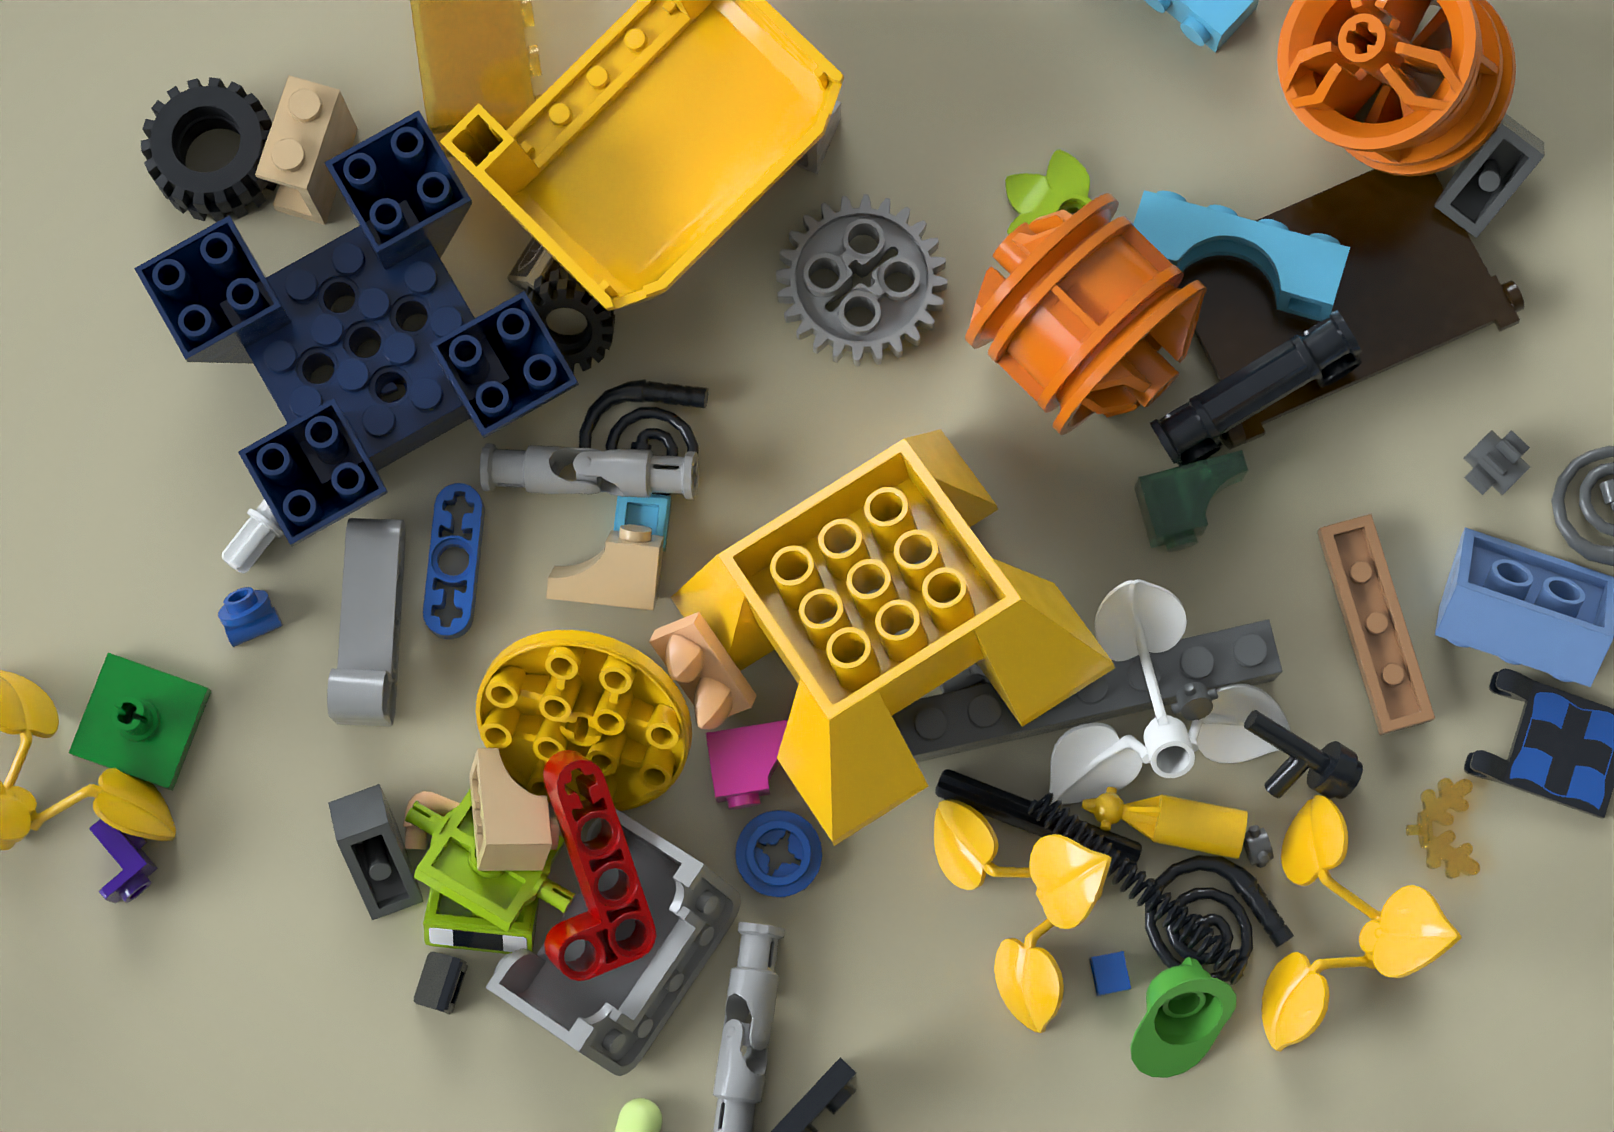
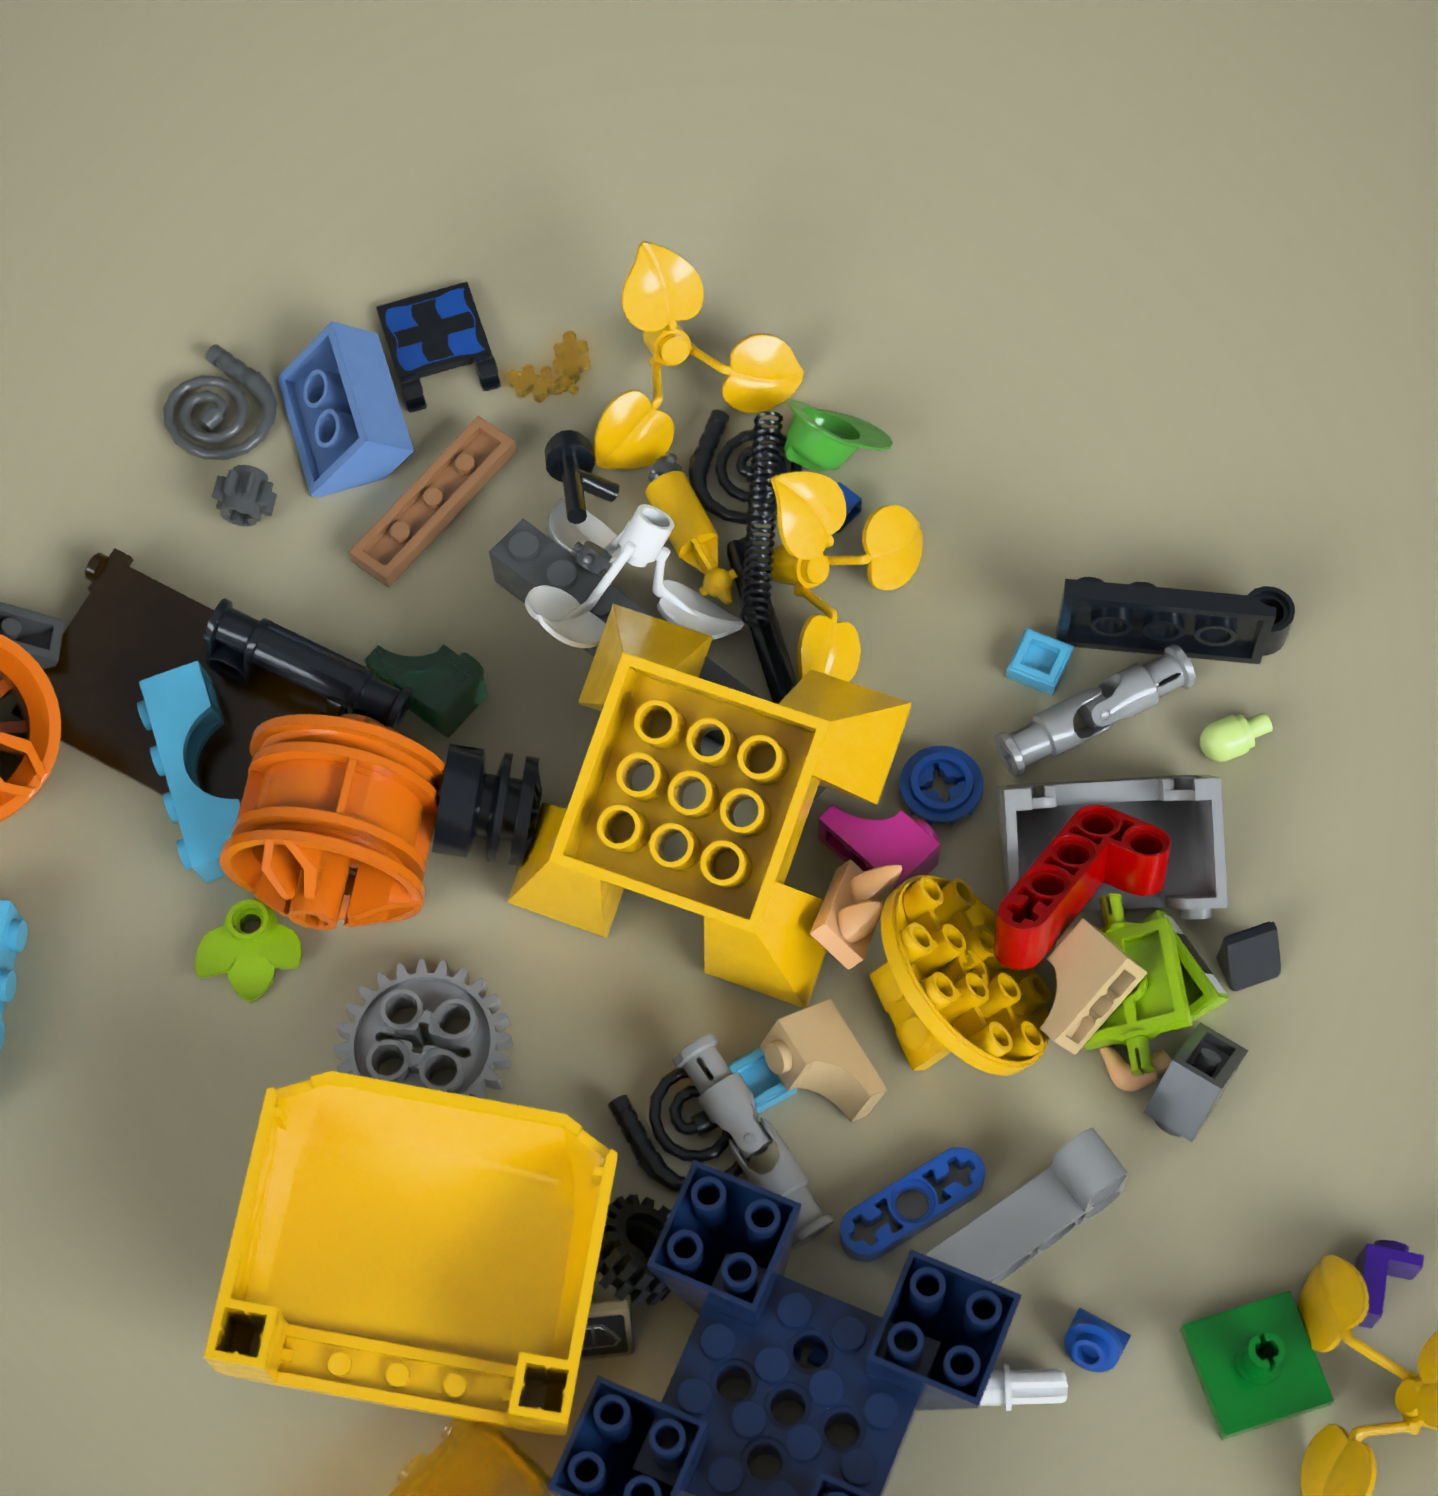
camera: 125 degrees left, 15 degrees down
(831, 1030) = (1039, 661): none -> medium azure tile
(1024, 454) = (486, 805): none -> black wheel

